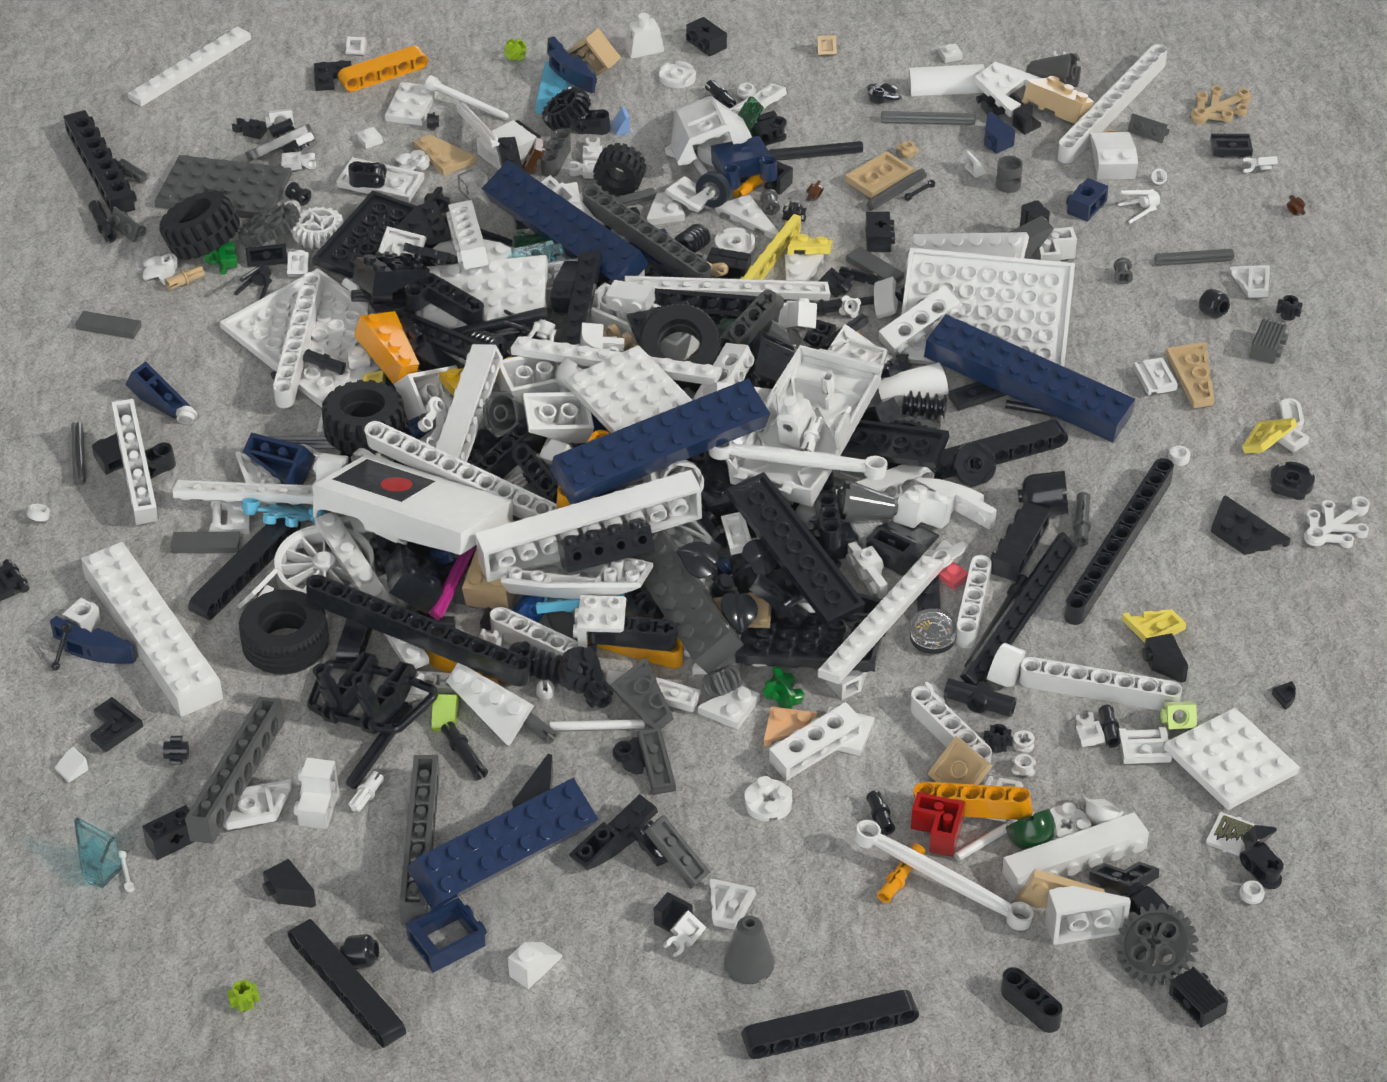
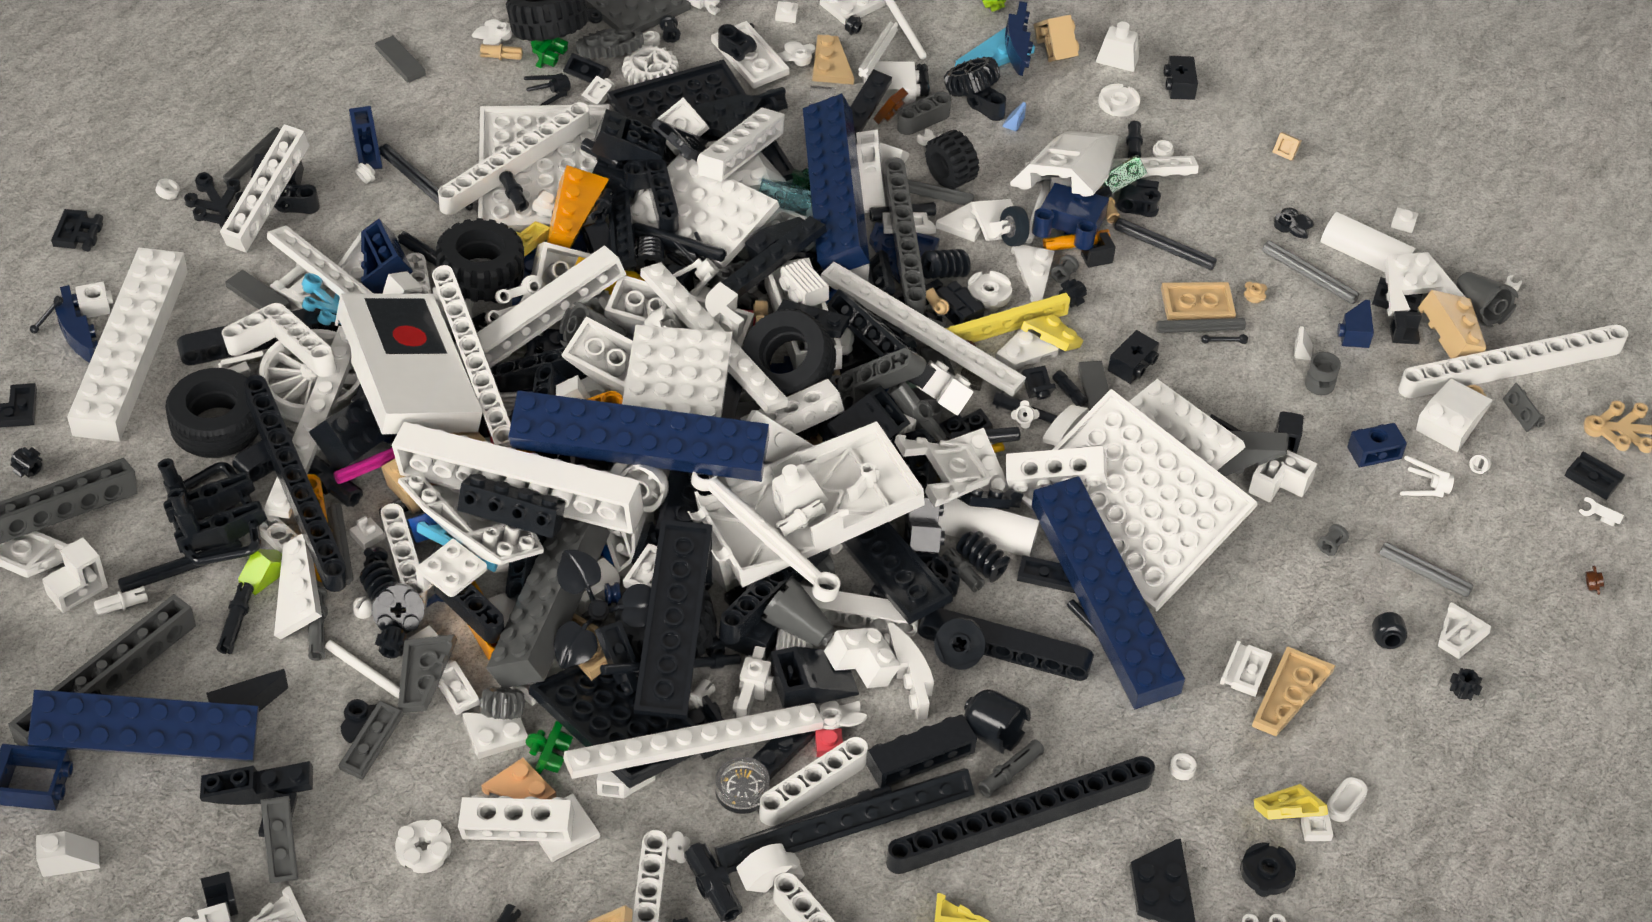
camera: 35 degrees right, 5 degrees up
(116, 506) = (205, 183): none -> black plant
(226, 397) = (410, 171): none -> black axle
(287, 541) = (280, 323): none -> white beam
(591, 150) = (965, 127): white plate -> none
(814, 190) = (1118, 282): reddish brown plate -> none
(1268, 341) = (1404, 706): dark grey brick -> none

